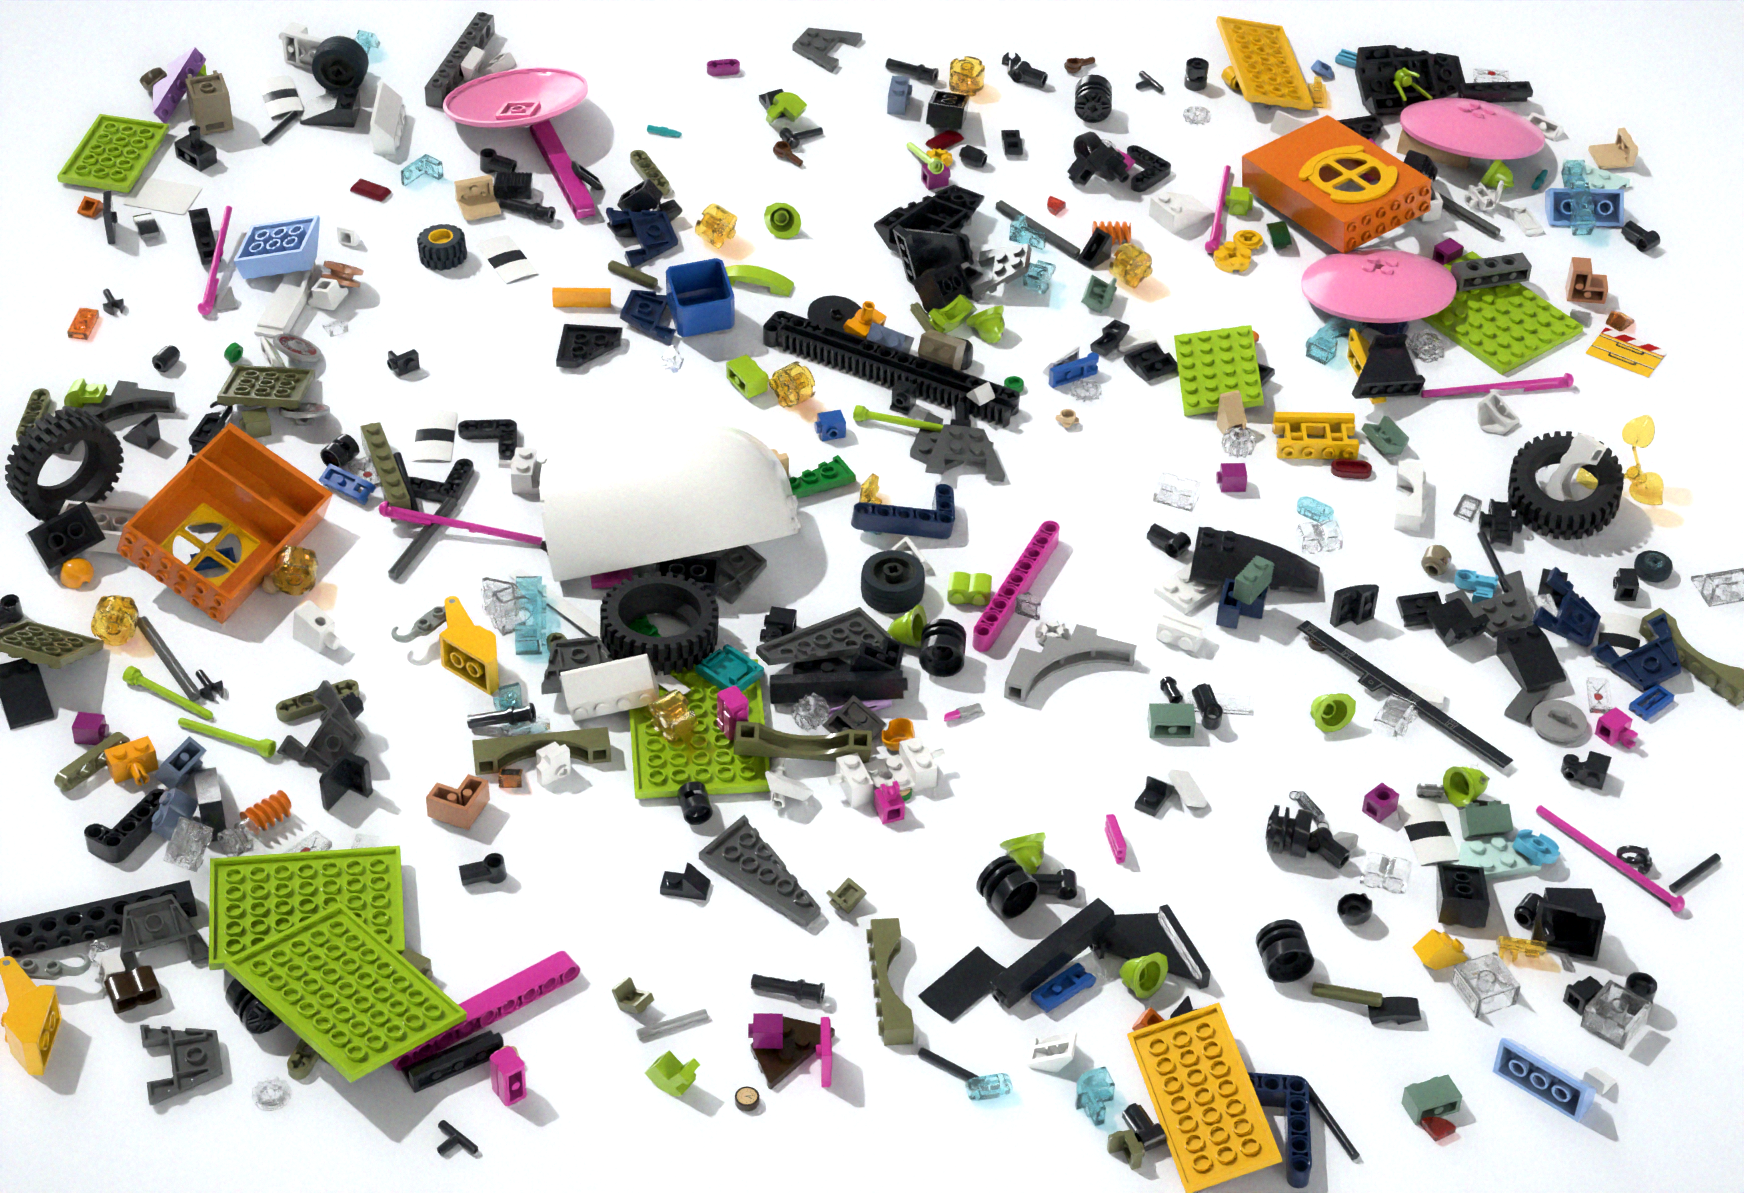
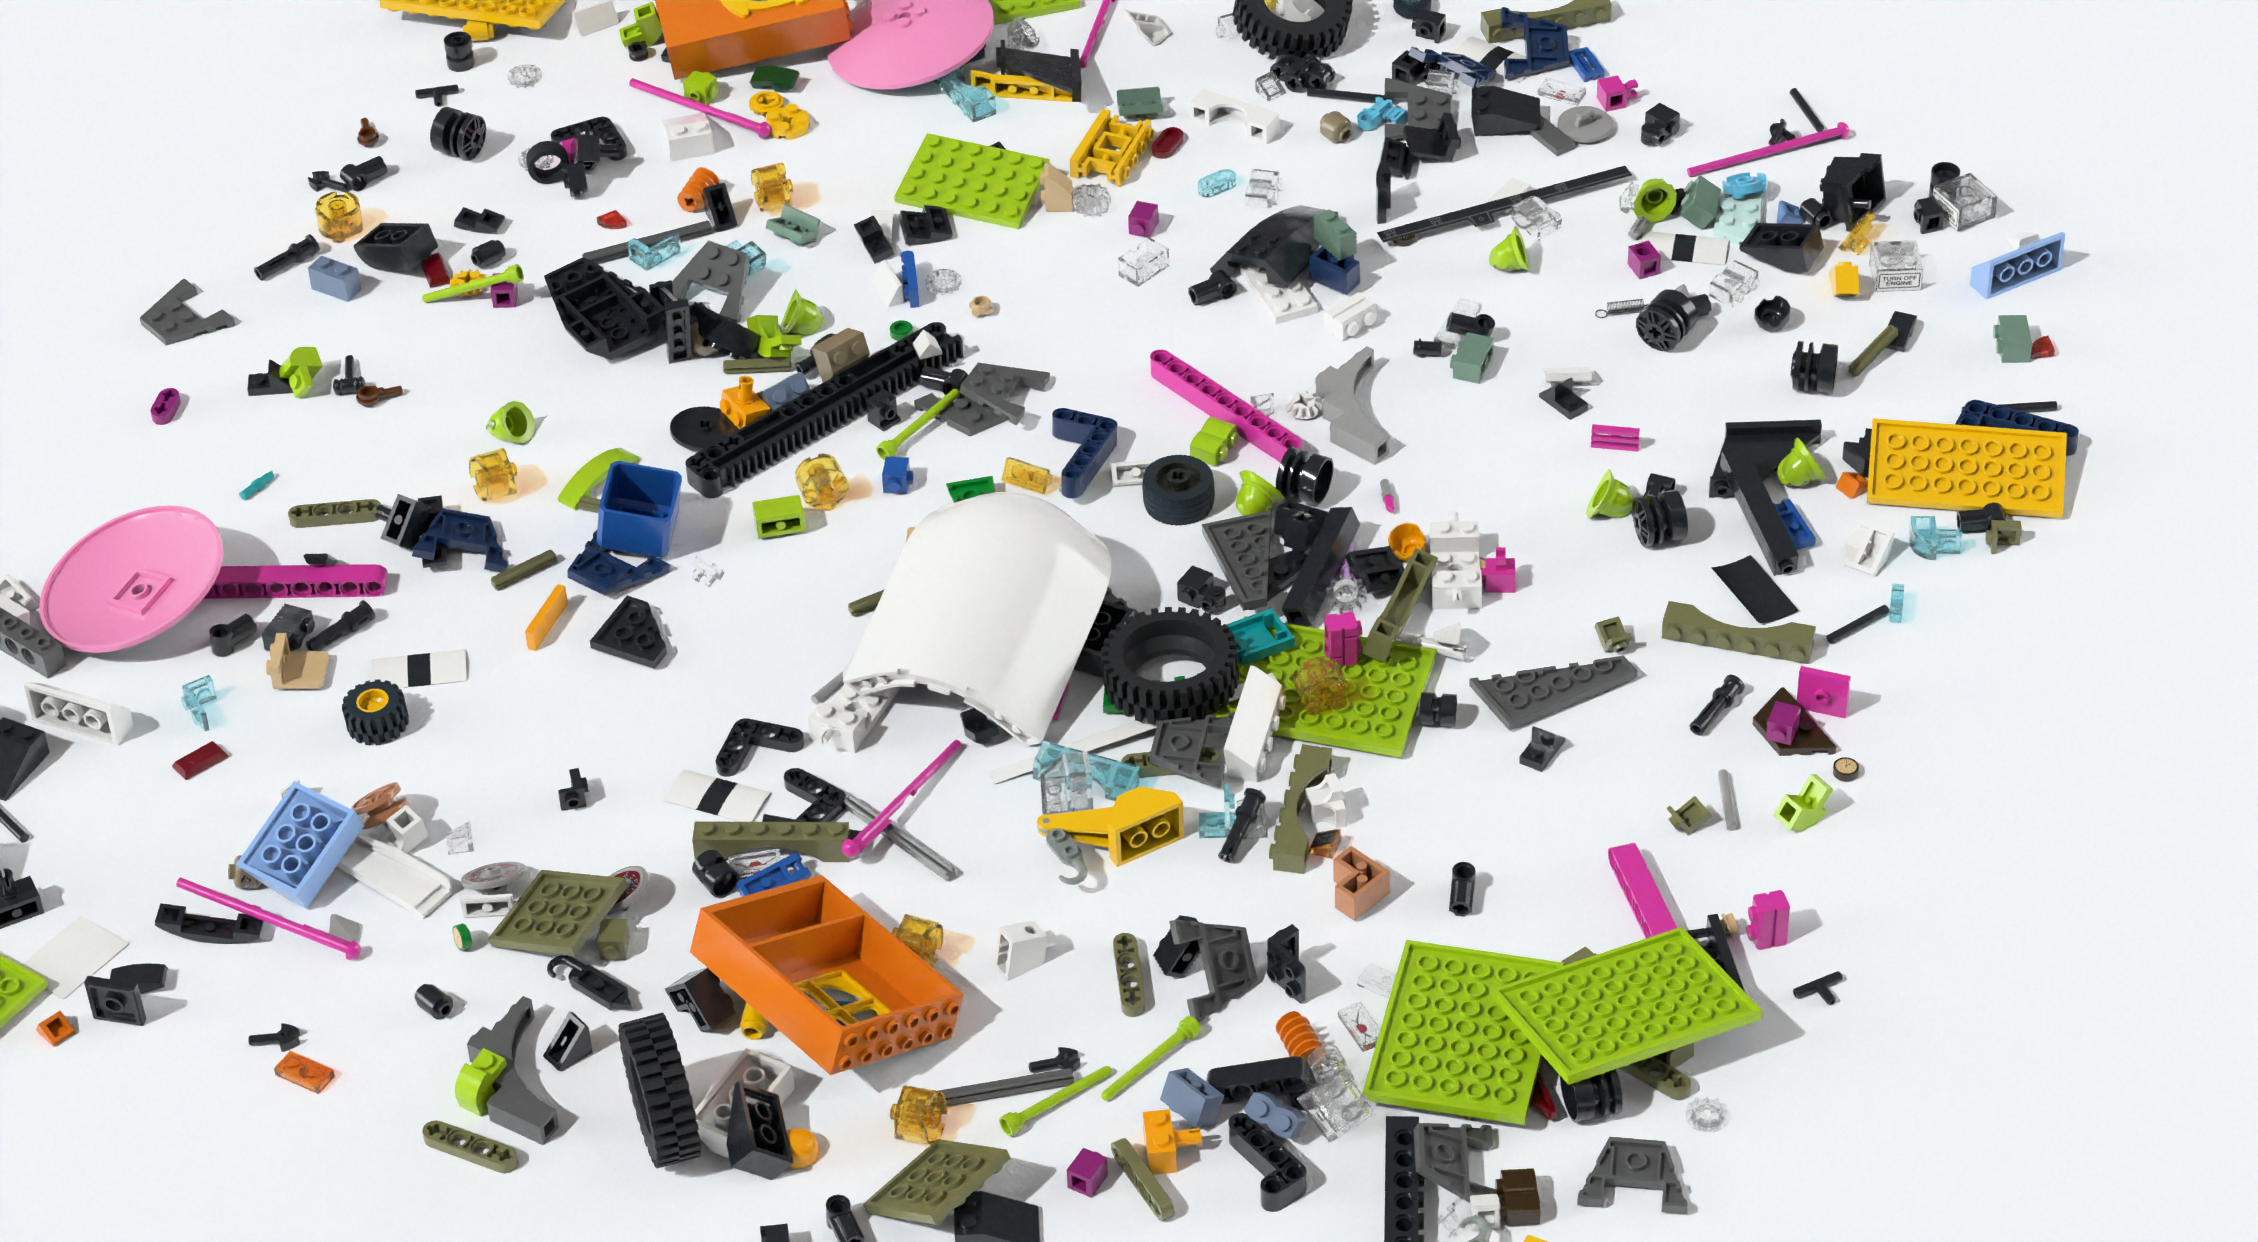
camera: 65 degrees left, 0 degrees up
(1519, 890) = (1788, 213): none -> medium blue slope

